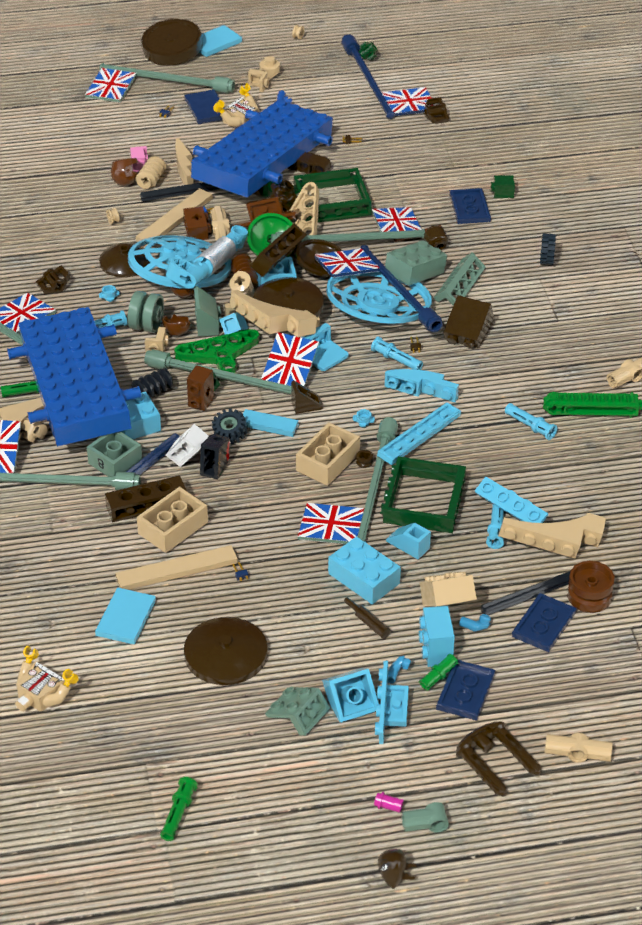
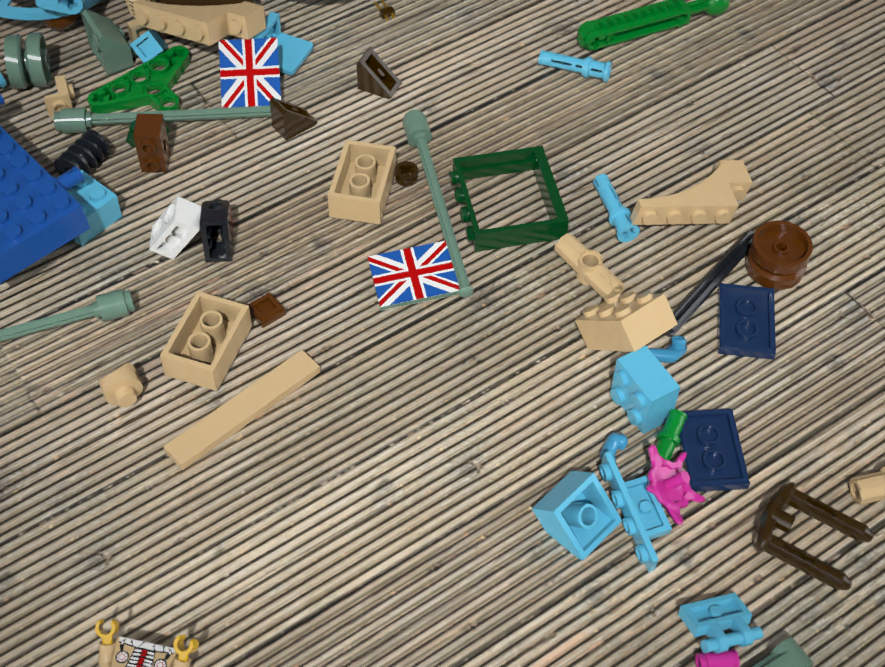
camera: 25 degrees left, 10 degrees up
(107, 529) = (121, 386): none -> tan piece
(114, 453) = (79, 271): sand green brick -> none
(125, 616) = (208, 507): medium azure tile -> none
(135, 500) = (147, 322): dark brown brick -> none
(154, 455) = (132, 254): dark blue axle -> none
(176, 325) = (75, 67): reddish brown hair -> none
(222, 515) = (266, 310): none -> reddish brown tile
(225, 651) = (373, 510): dark brown dish -> none
(236, 419) = (223, 172): black bush -> none
(243, 574) = (335, 387): dark blue piece -> none
(270, 423) = (260, 163): medium azure tile -> none
(302, 705) = (519, 559): sand green bracket -> none
(363, 418) = (376, 120): medium azure plate -> none
(364, 570) = (494, 327): medium azure brick -> none
(369, 619) = (535, 393): dark brown axle -> none
(378, 387) = (376, 76): none -> dark brown slope
(390, 351) = (361, 26): medium azure pin -> none
(402, 781) = (718, 614): none -> medium azure plate
(411, 539) = (528, 264): medium azure slope -> none
(419, 433) = (456, 121): medium azure tile -> none
(421, 381) = (432, 52): medium azure slope -> none
(421, 696) = (670, 484): none -> dark pink piece
(451, 551) = (588, 266): none -> tan piece
(510, 502) = (622, 176): medium azure bracket -> none

